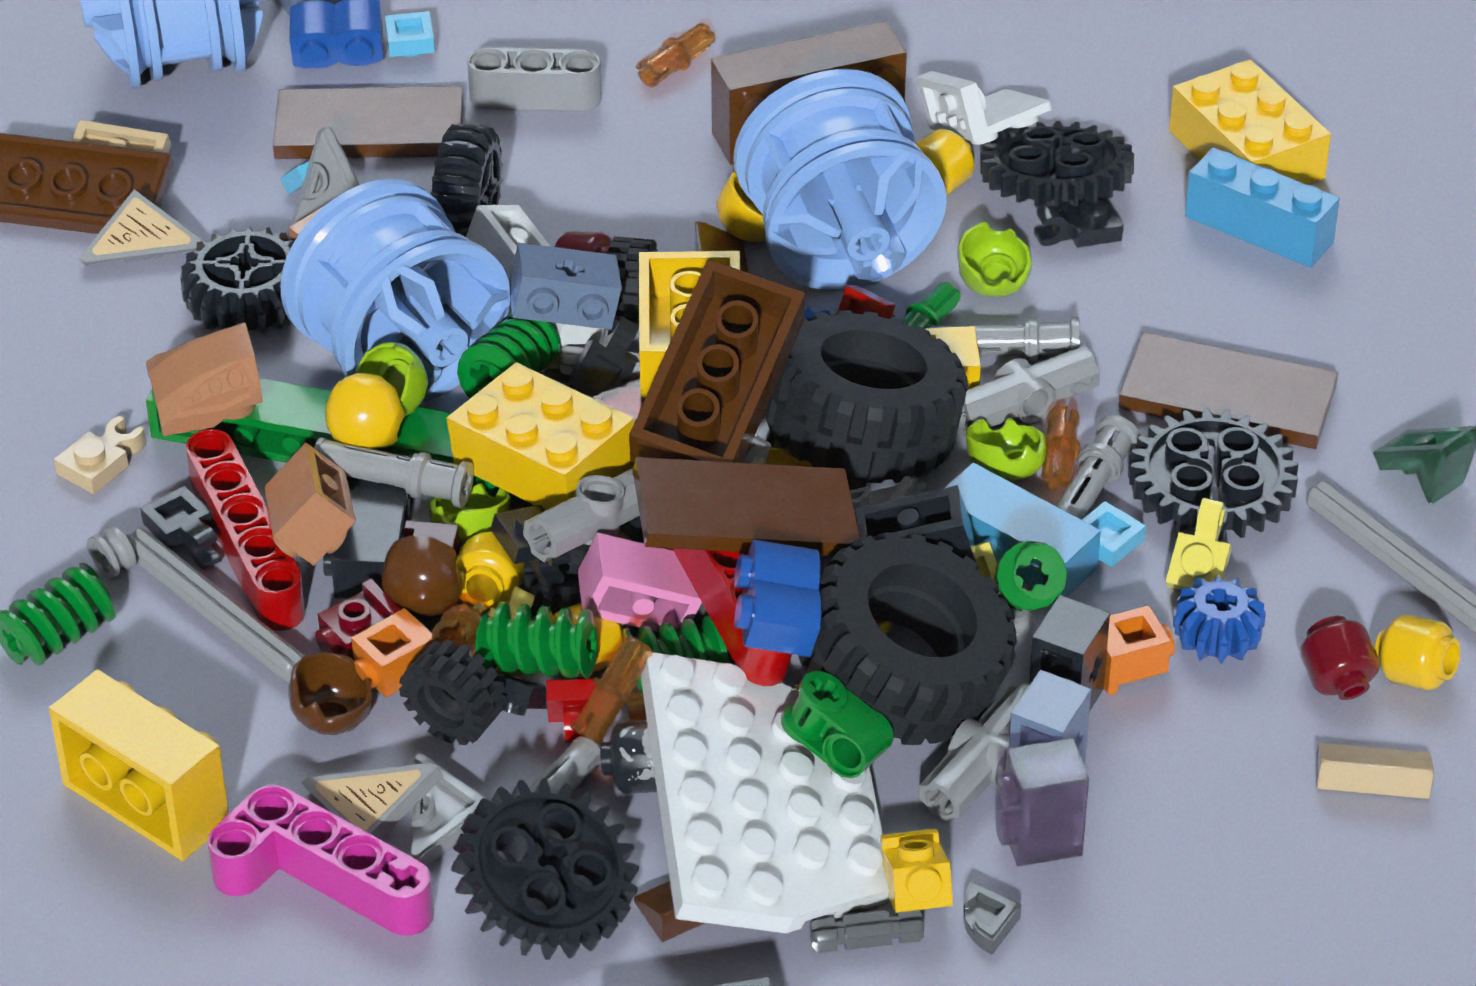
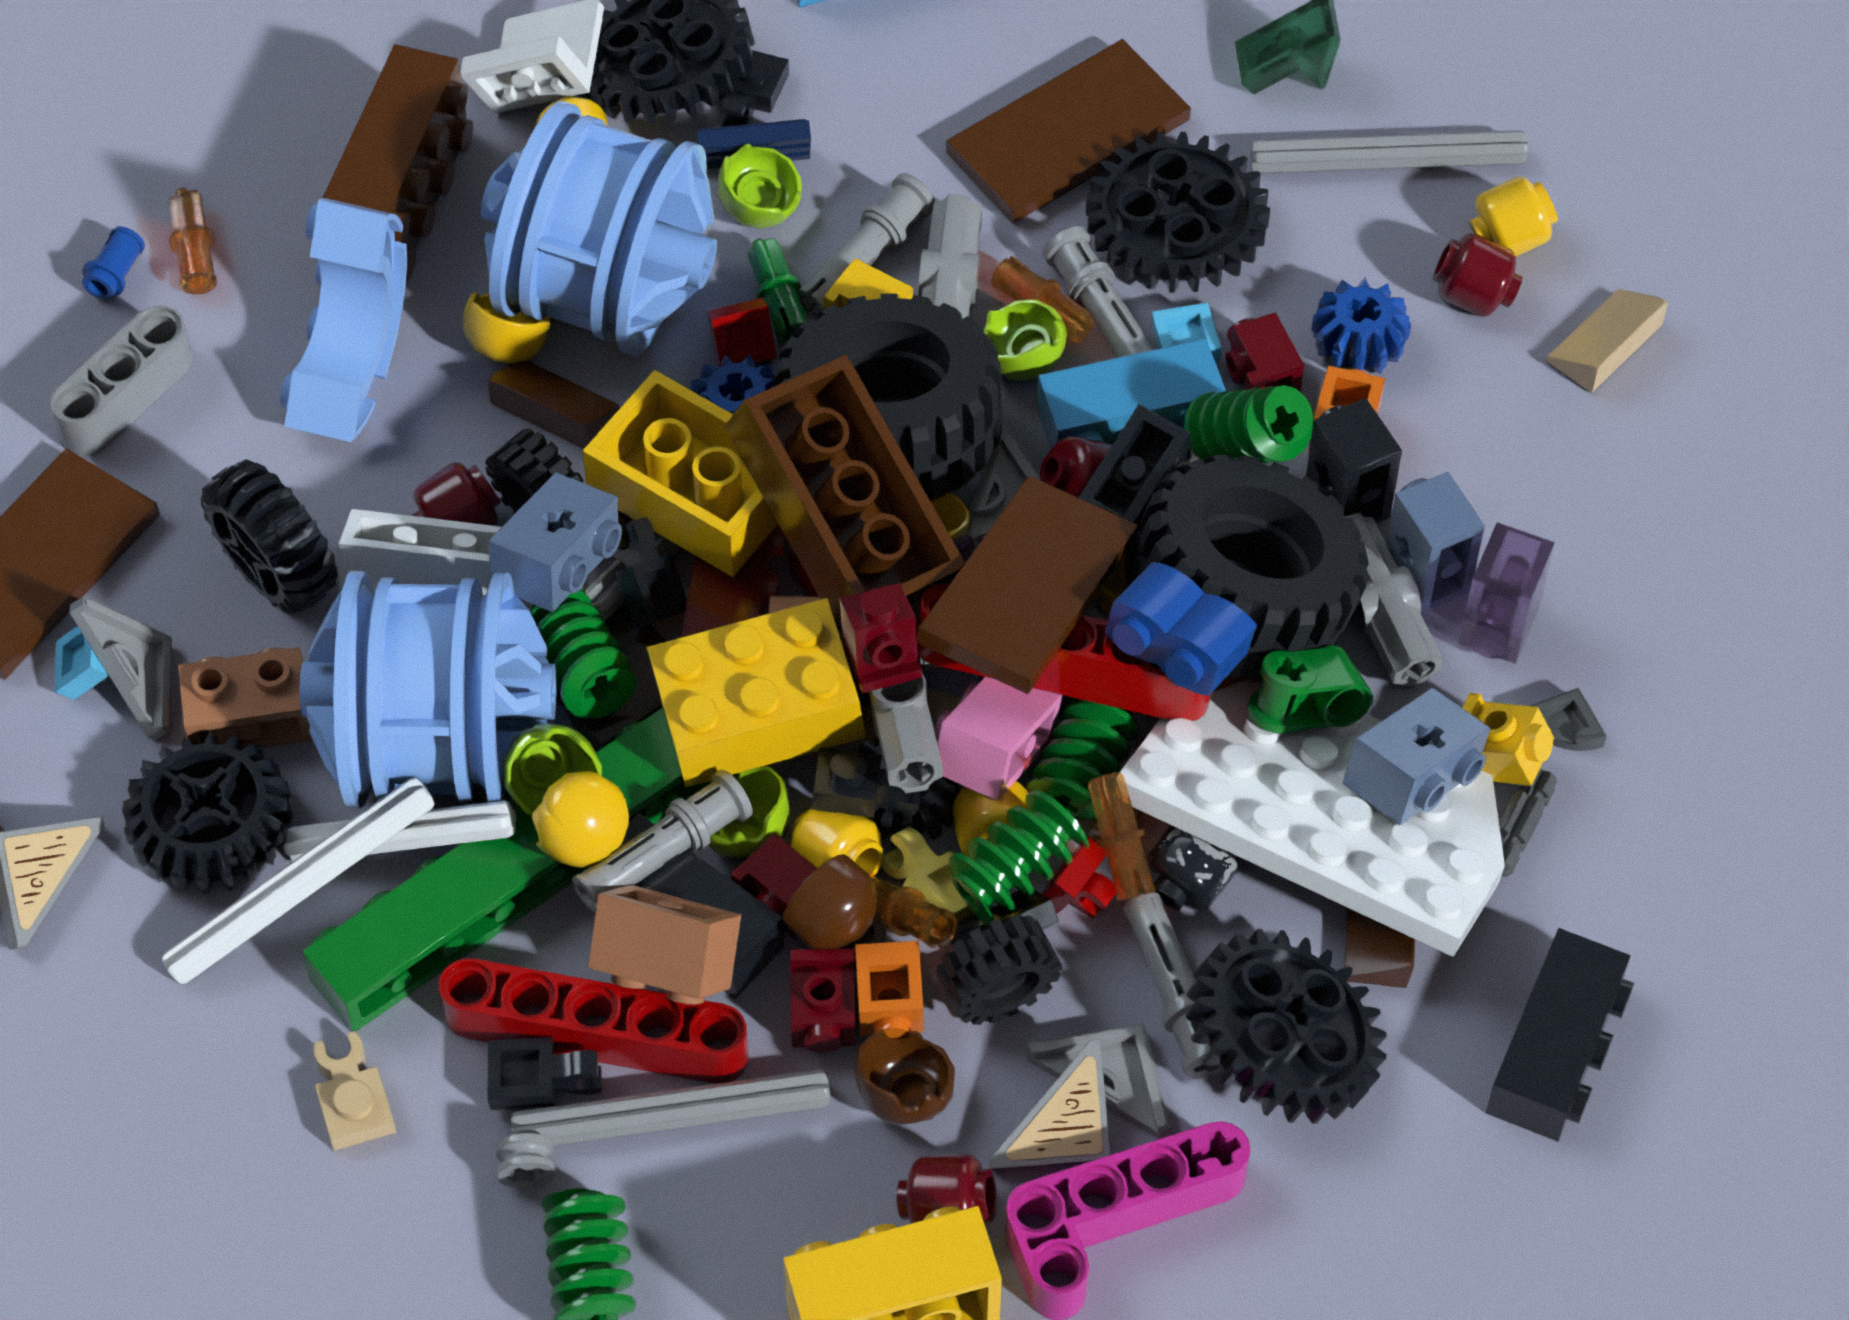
camera: 55 degrees left, 15 degrees up
(205, 381) = (386, 928): nougat slope -> none
(254, 760) = (946, 1182): none -> dark red head
(263, 334) = (298, 880): none -> white axle
(297, 357) = (432, 829): none -> white axle
(611, 447) = (880, 637): none -> dark red brick
(622, 32) = (107, 272): none -> blue pin
(677, 139) = (355, 321): none -> light blue brick
(831, 808) = (1417, 756): none -> sand blue brick
(1047, 253) = (788, 137): none -> dark blue tile
(1127, 579) = (1263, 354): none -> dark red brick
(1200, 554) = (1275, 286): light yellow plate -> none

